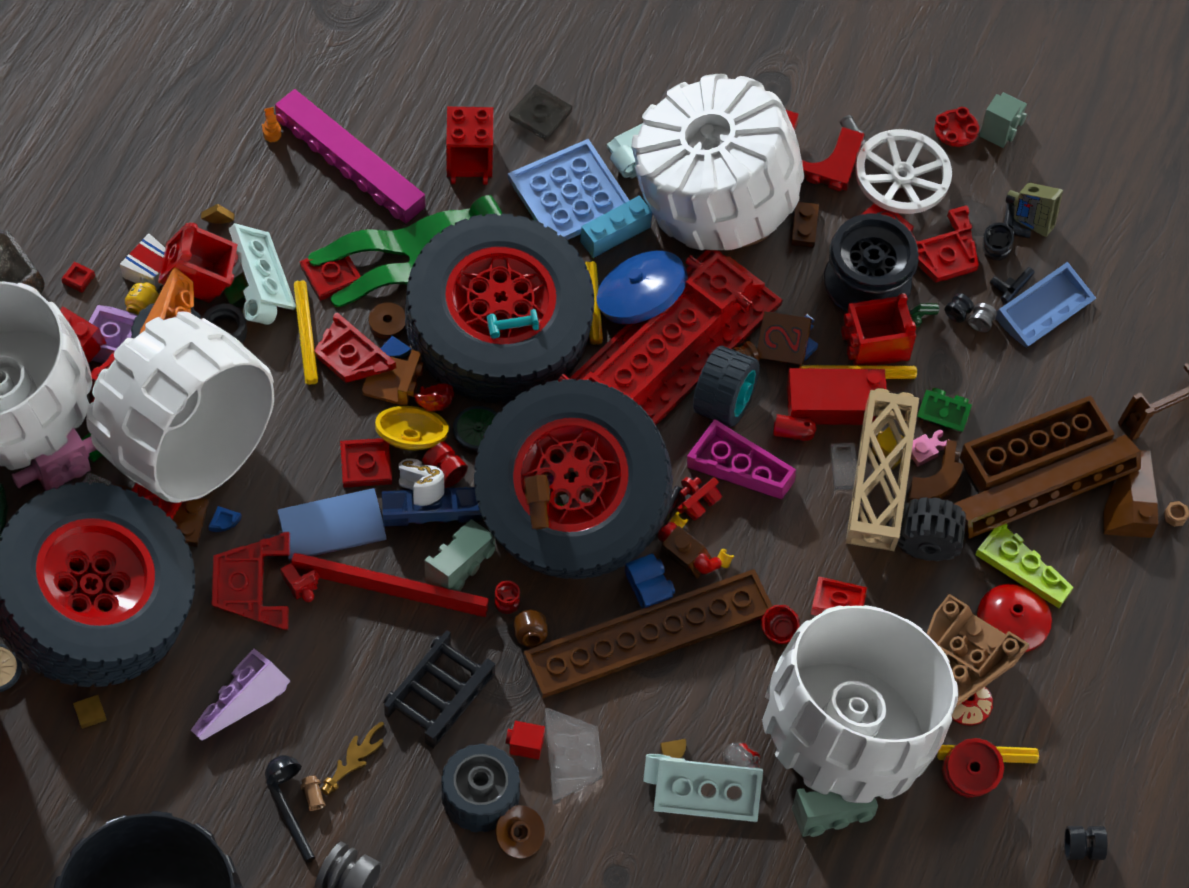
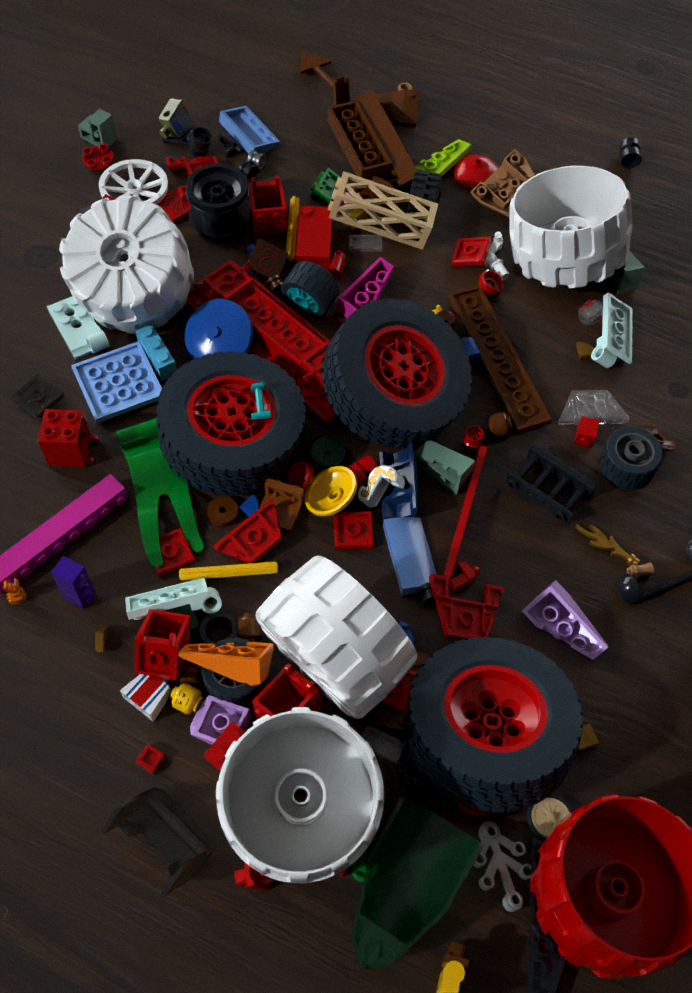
camera: 85 degrees left, 0 degrees up
(272, 171) = (73, 582): none -> dark purple brick
(537, 496) = (425, 384): reddish brown piece -> none

